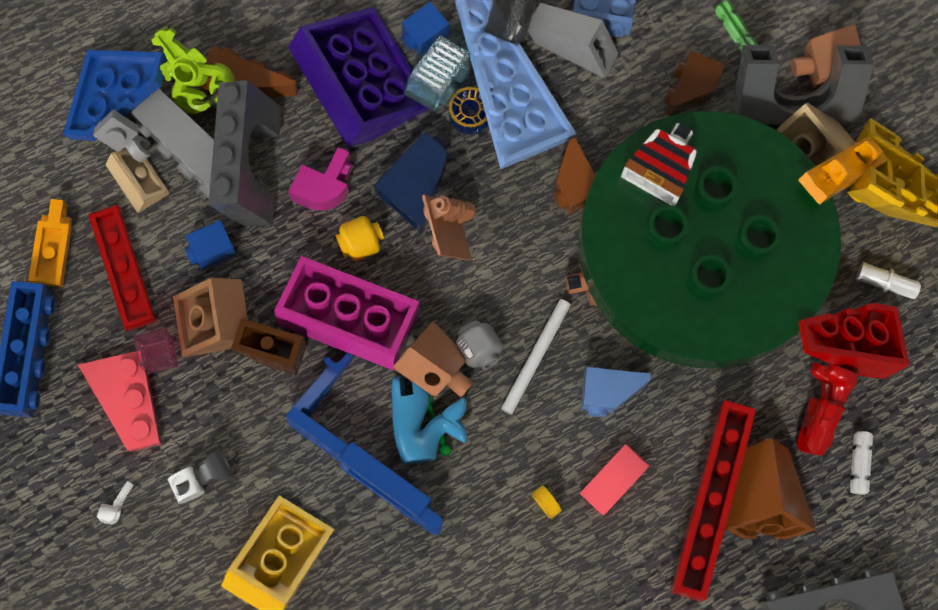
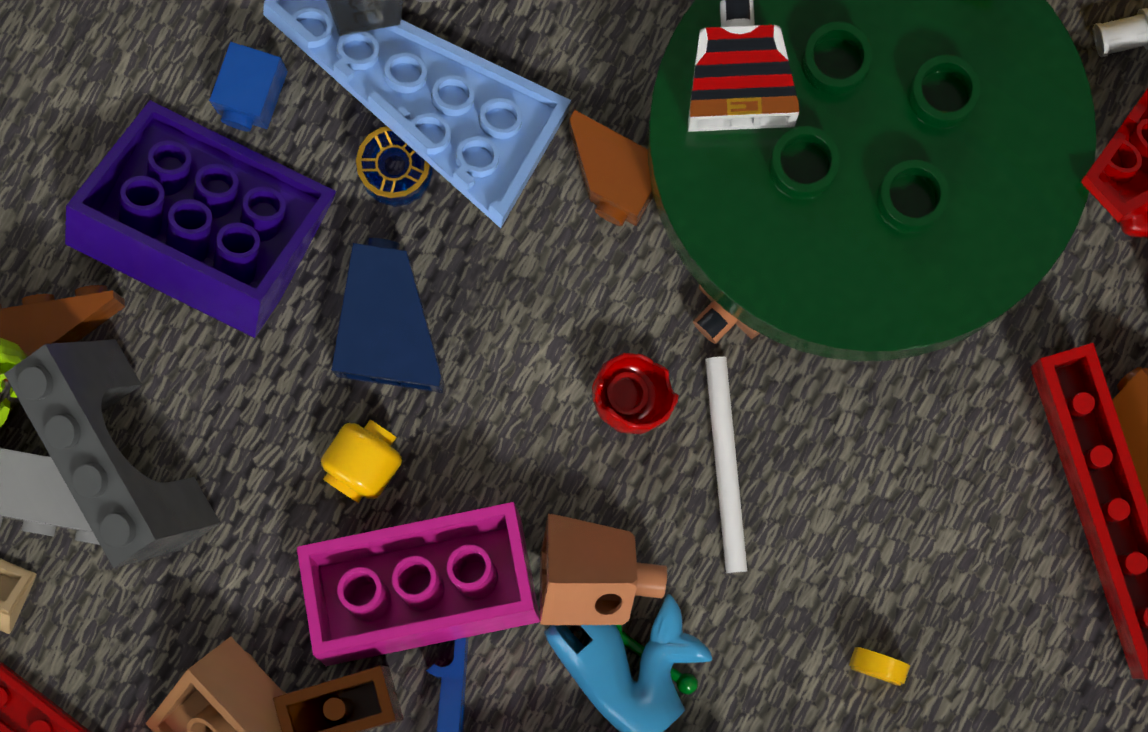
camera: 25 degrees left, 5 degrees up
(209, 246) = (150, 616): blue brick -> none
(322, 190) = (263, 424): dark pink brick -> none
(437, 74) = (312, 142): clear light blue brick -> none
(446, 224) = (477, 362): nougat hinge -> none
(479, 345) = (637, 503): light grey head -> none
(512, 291) = (633, 393): none -> red hair
(609, 389) = (863, 446): medium blue slope -> none
(614, 479) = (953, 569): coral slope -> none

